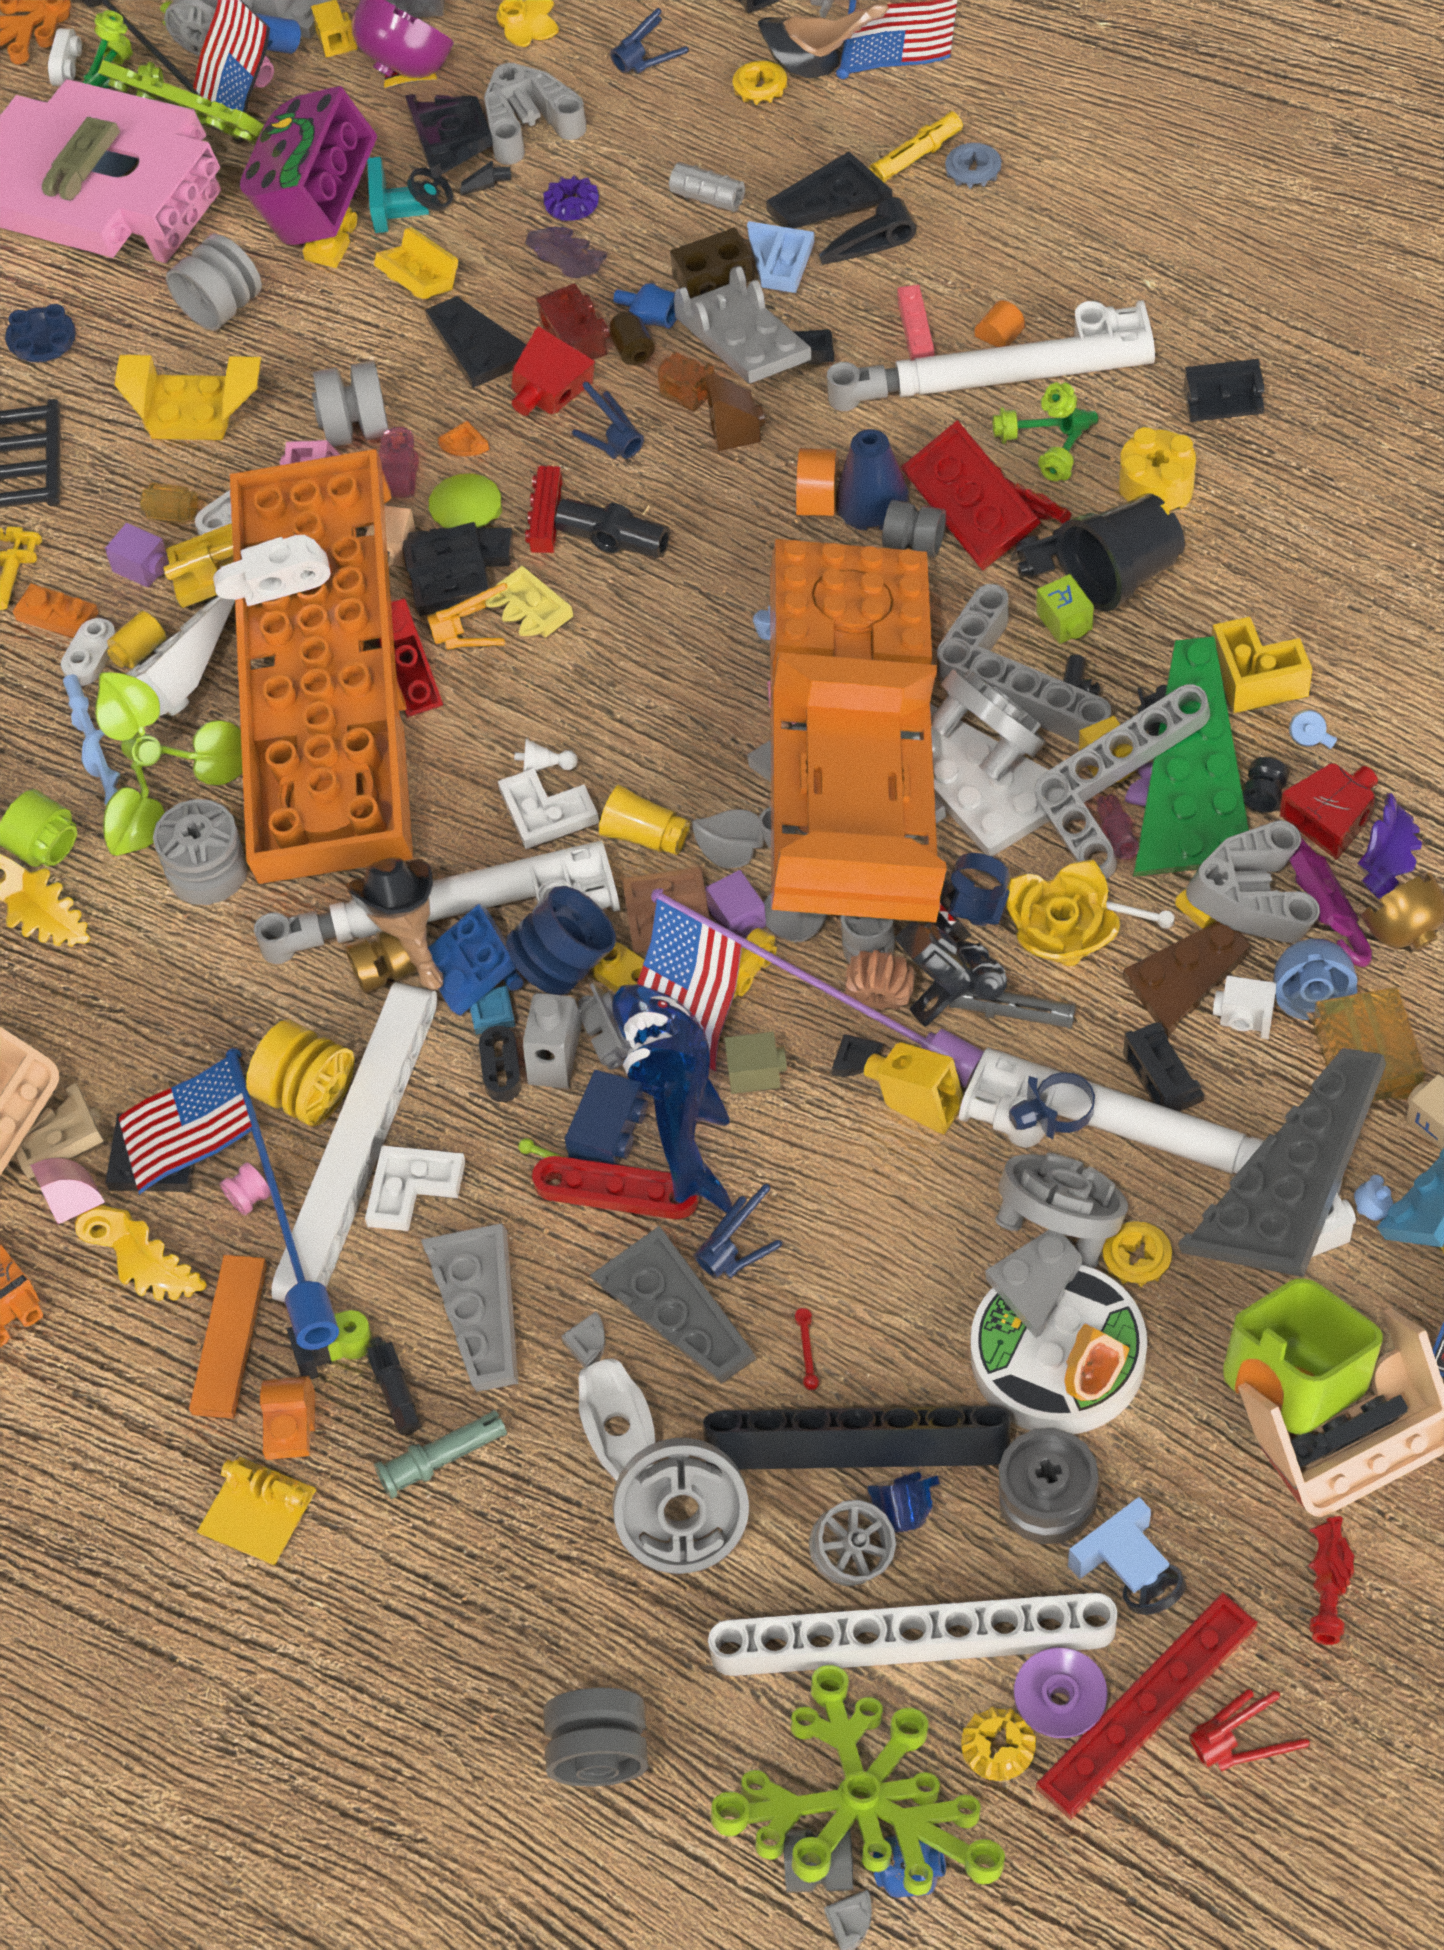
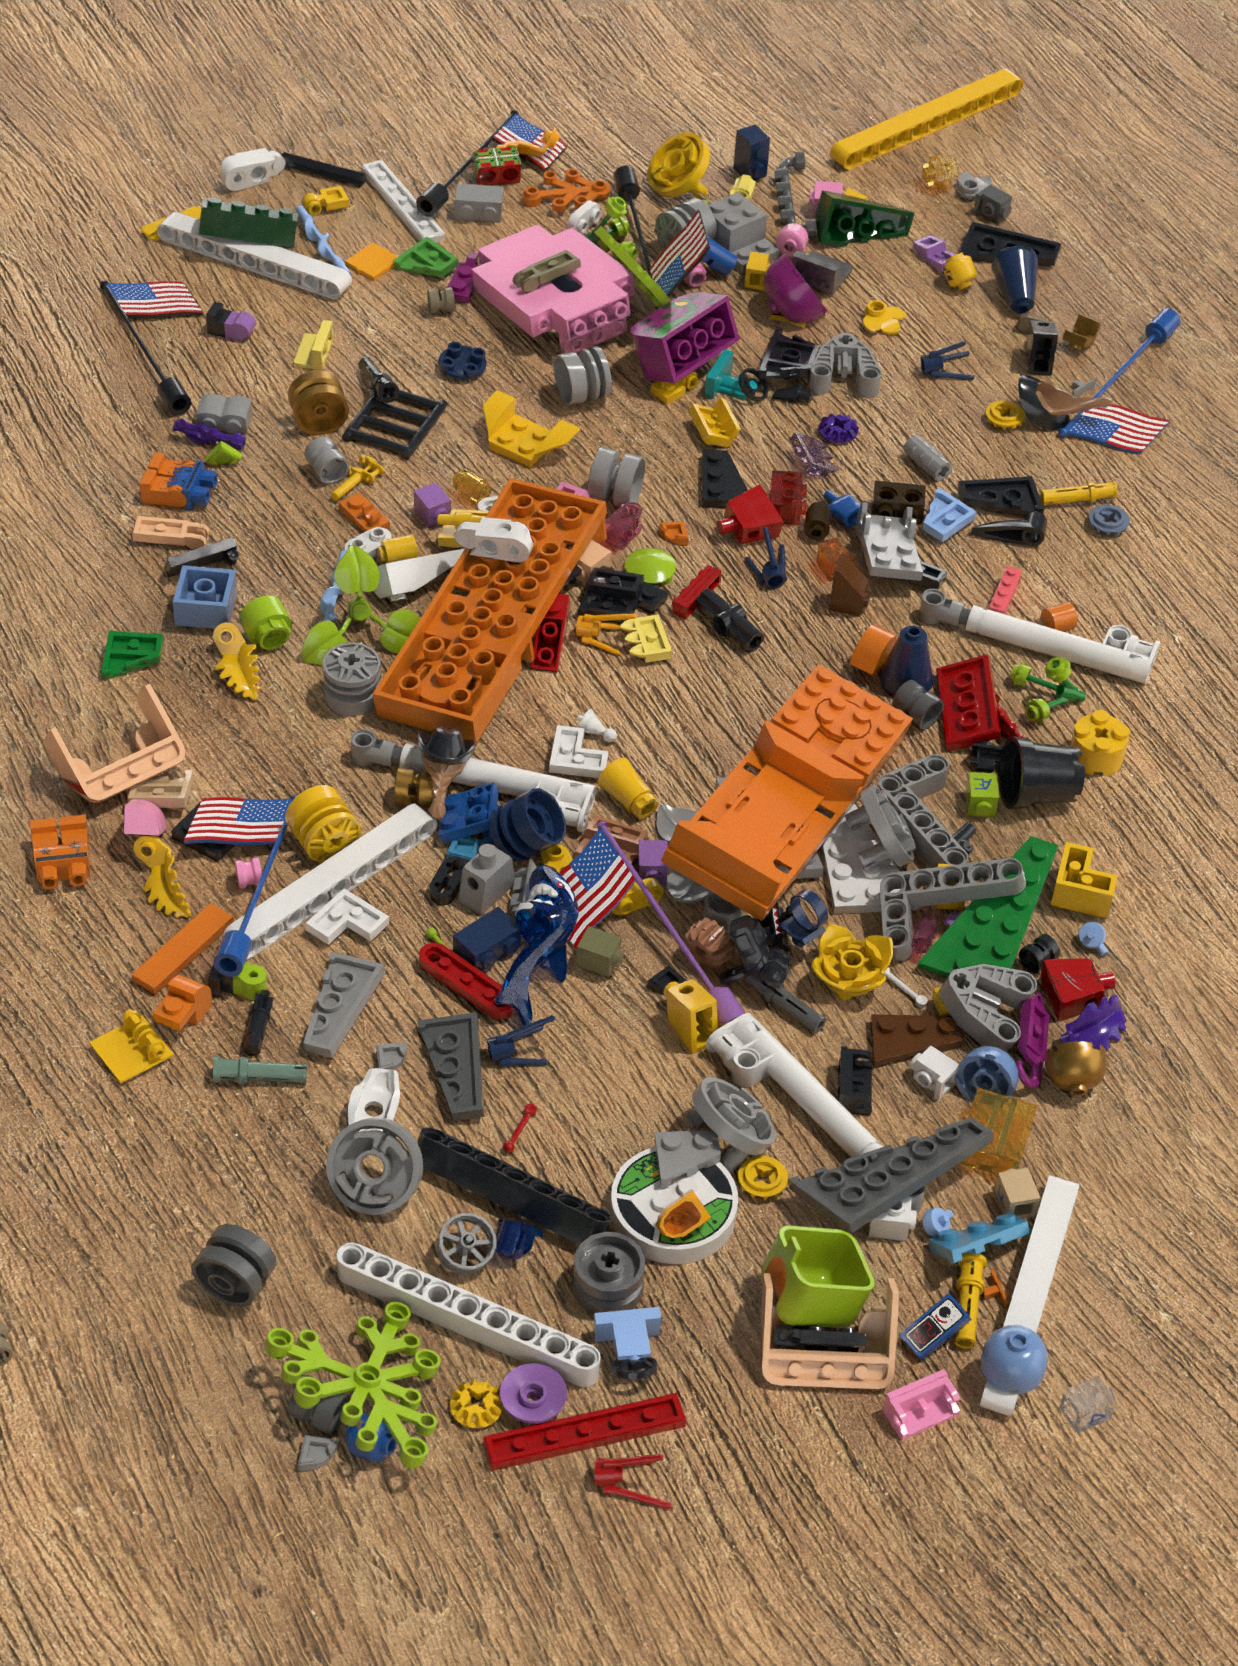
camera: 20 degrees right, 10 degrees down
(1029, 1111) = (742, 1056): dark blue piece -> none
(1224, 390) = (1179, 718): black hinge -> none
(1333, 1573) = (756, 1417): red piece -> none

